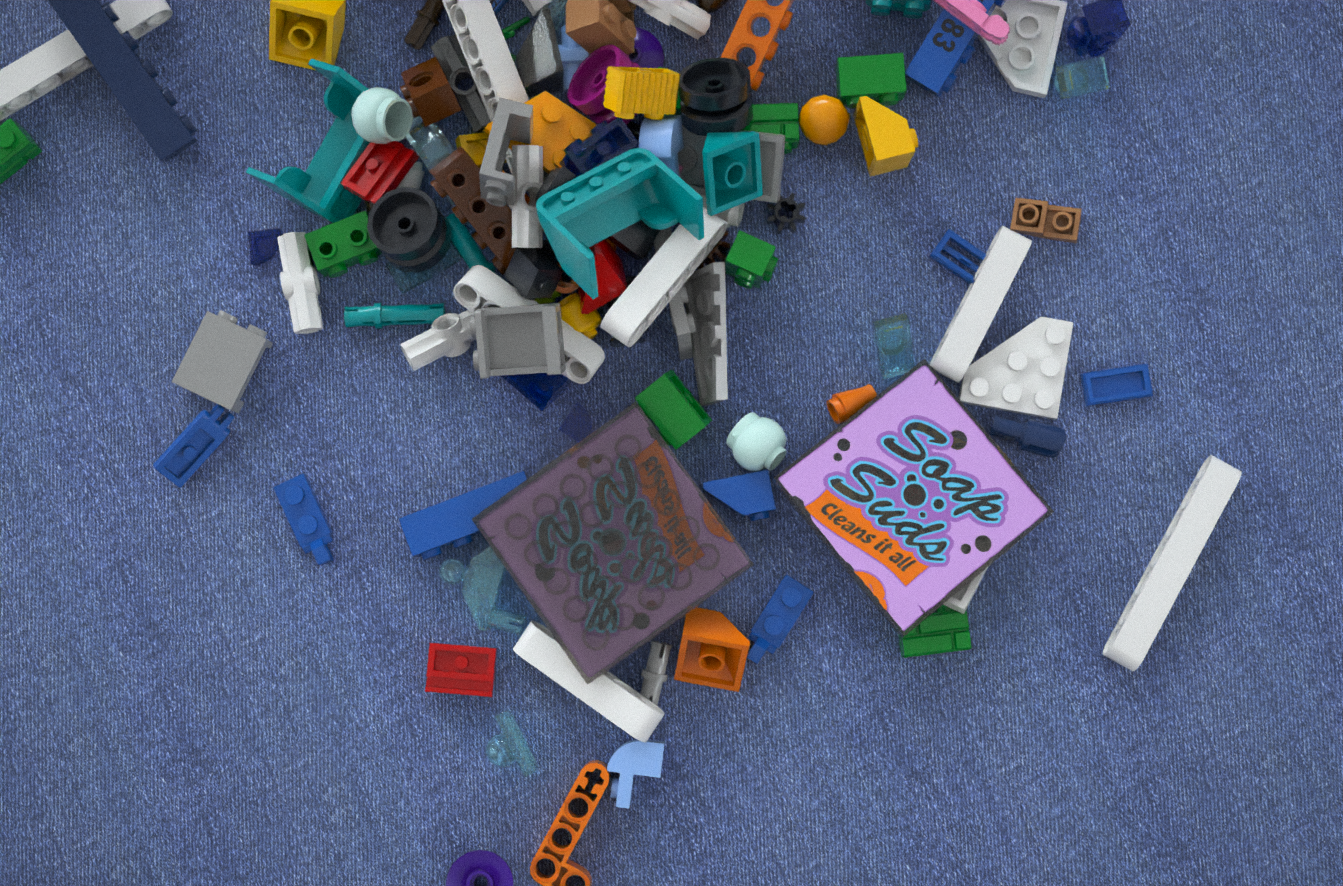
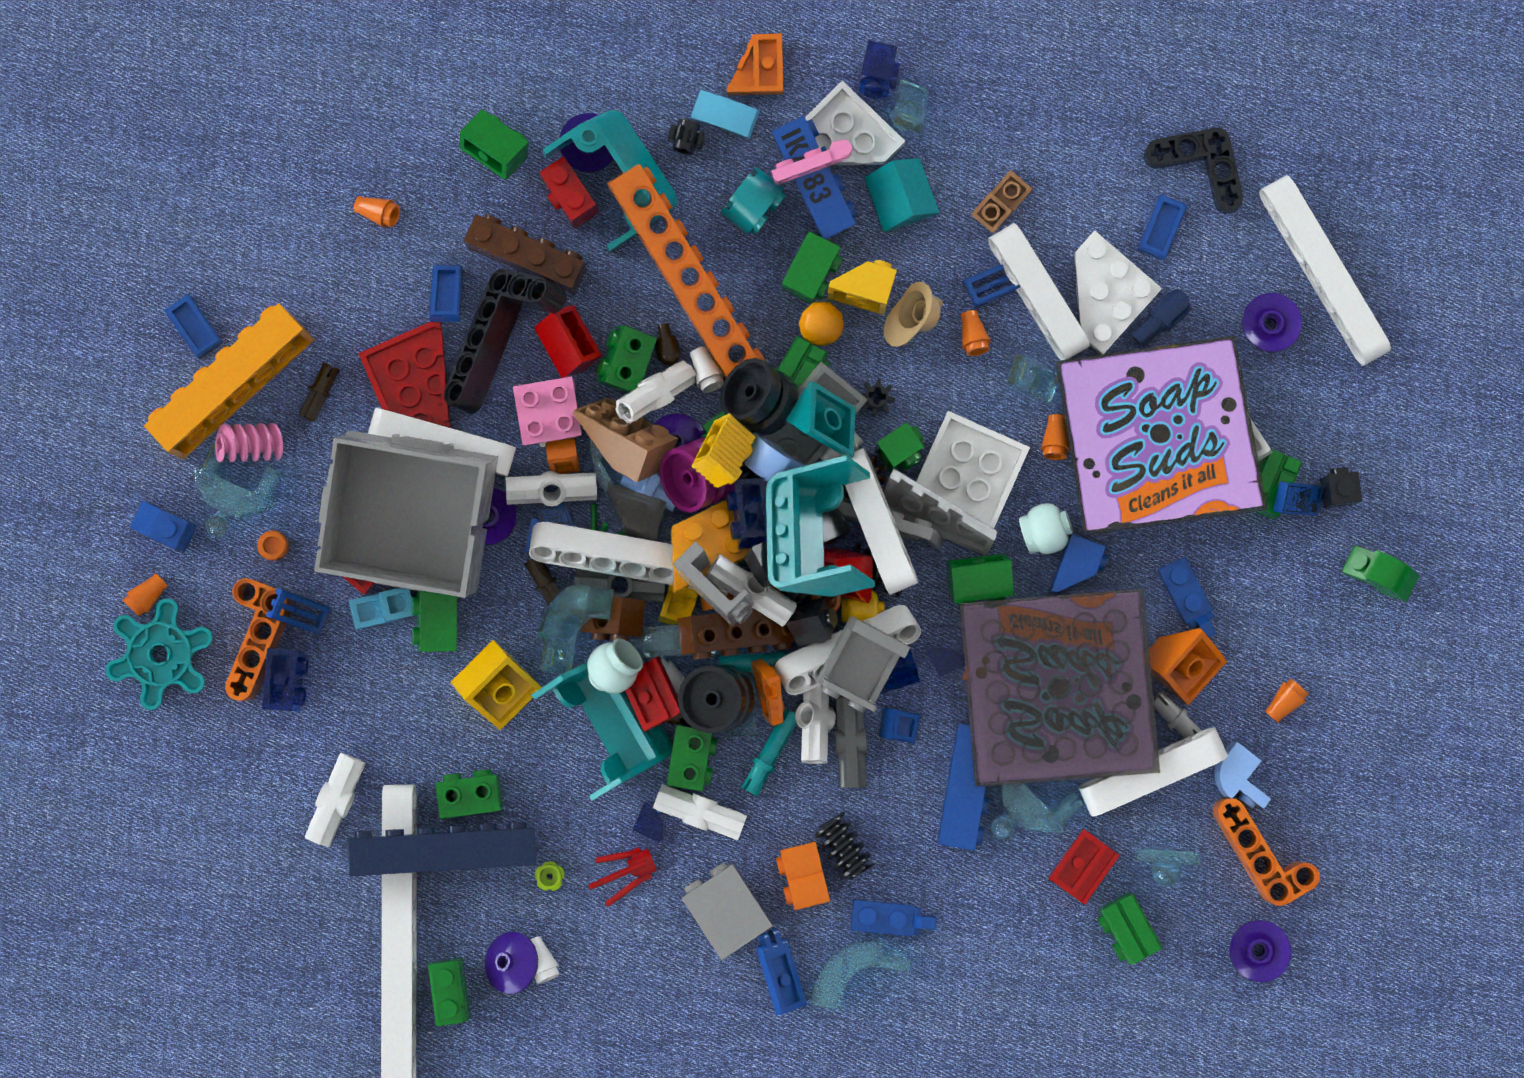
camera: 55 degrees left, 0 degrees up
(60, 195) = (521, 963): none -> dark purple dish
(77, 222) = (547, 964): none -> white cone
(152, 183) = (541, 876): none -> lime plate
(190, 66) = (469, 795): none -> green brick
(219, 258) = (640, 865): none -> red plant
(221, 496) = (847, 961): none -> clear light blue arch
(297, 413) = (804, 876): none -> orange brick
(345, 433) = (843, 847): none -> black piece
(397, 52) = (564, 621): none -> clear light blue arch
(427, 746) = (1129, 929): none -> green brick
(439, 287) = (769, 691): none -> orange wing
(442, 387) = (850, 745): none -> dark grey piece
(491, 420) = (899, 725): none -> blue slope
(714, 41) = (708, 374): none -> white cone
(734, 769) = (1286, 700): none -> orange cone
(774, 342) = (972, 467): none -> white plate
(887, 200) = (912, 314): none -> tan piece
(900, 270) = (974, 336): none -> orange cone
(912, 788) = (1382, 572): none -> green brick
(934, 665) = (1298, 498): none -> blue tile
(970, 701) = (1341, 488): none -> black brick
(995, 122) = (901, 194): none -> teal slope
(1105, 536) = (1282, 312): none -> dark purple dish
(1213, 380) = (1204, 152): none -> black beam

